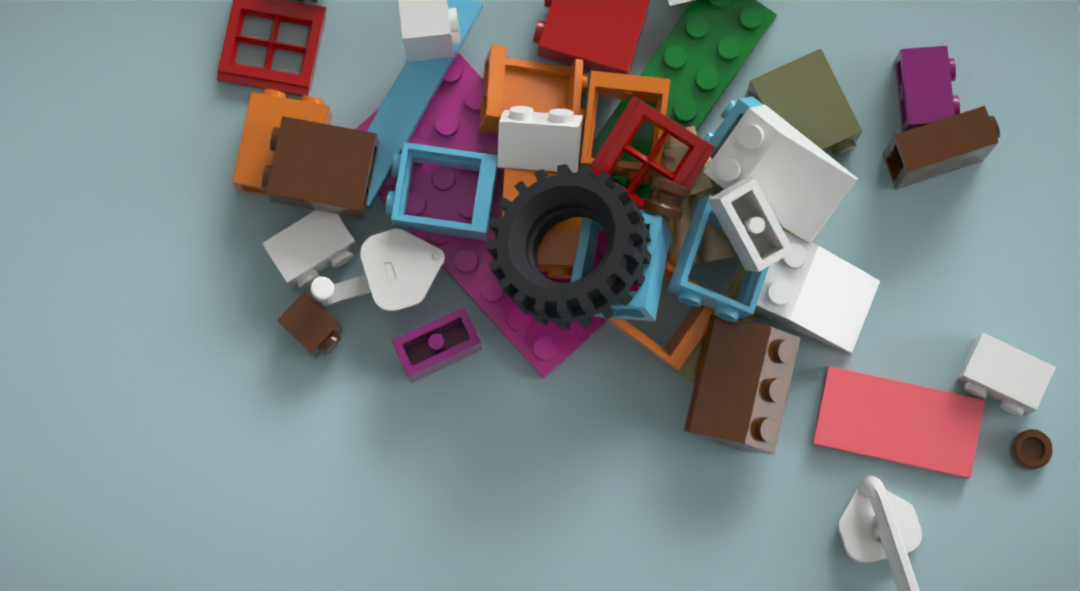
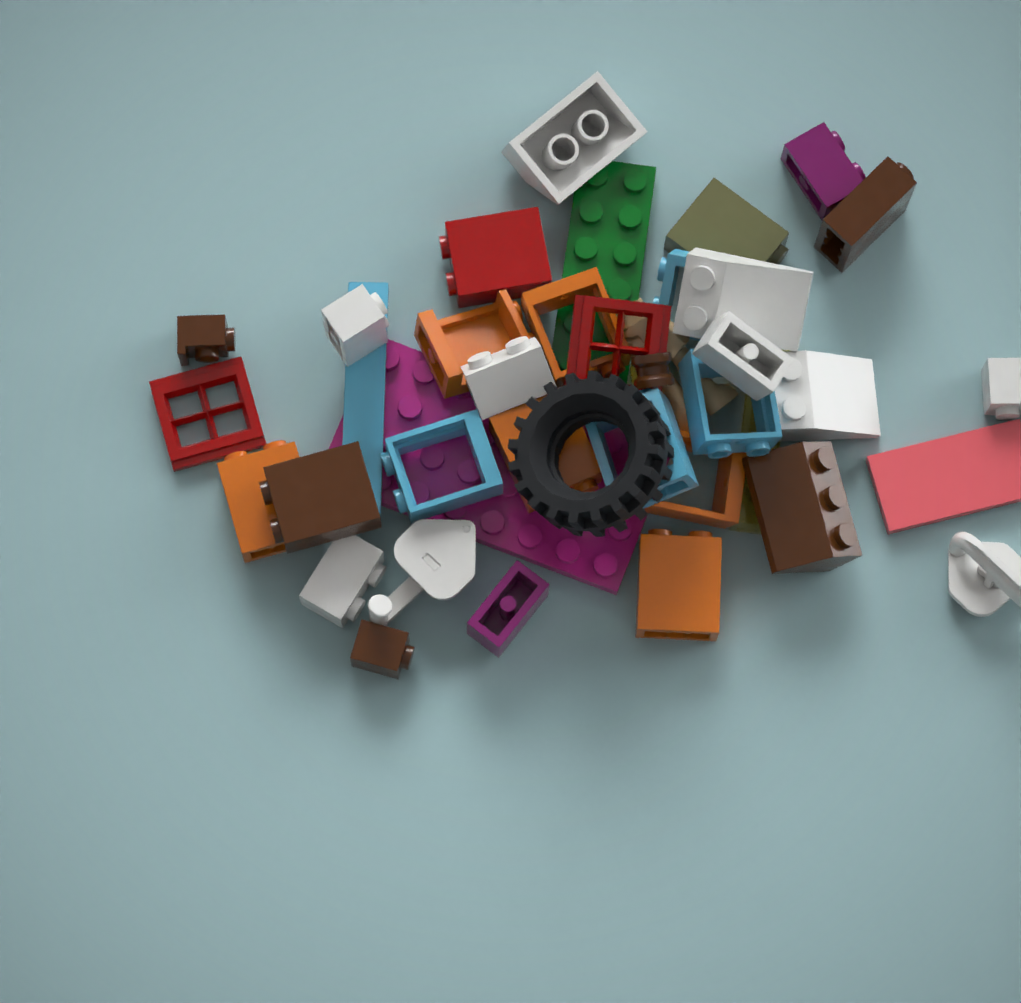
camera: 30 degrees left, 5 degrees down
(599, 398) = (678, 586): none -> orange brick

